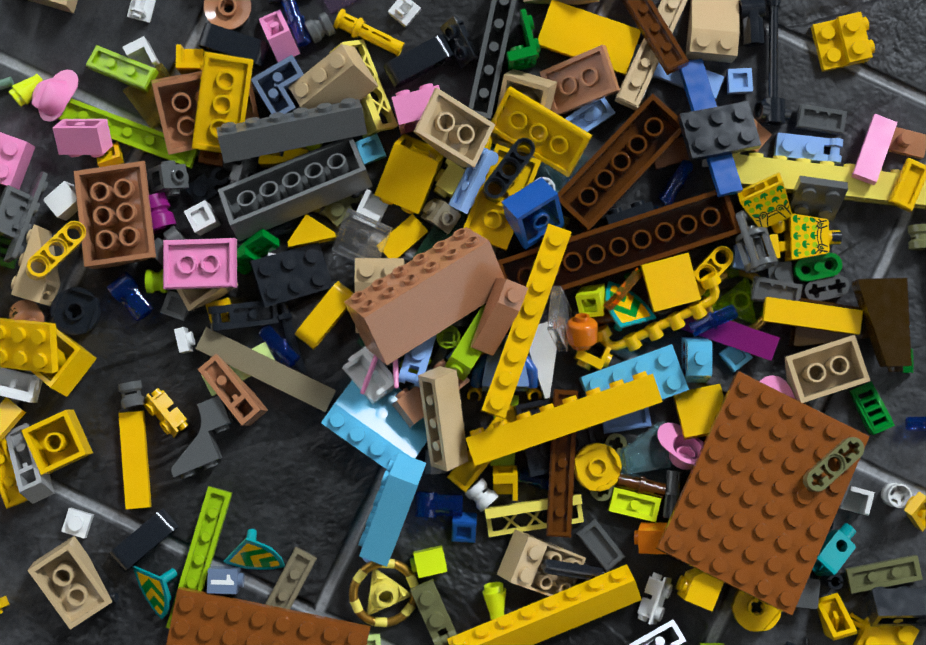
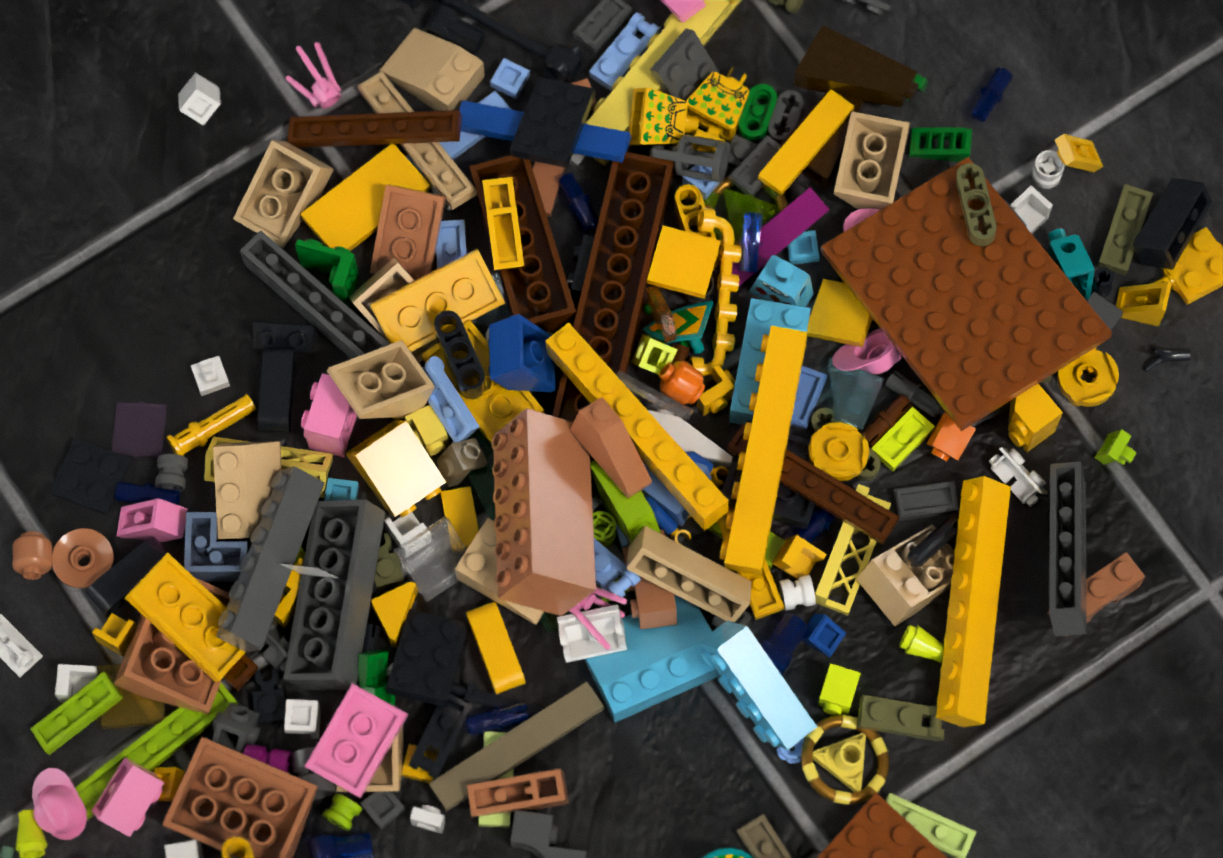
camera: 55 degrees left, 15 degrees down
(294, 162) = (309, 571): none -> white sticker
(622, 142) = (503, 223): none -> yellow slope

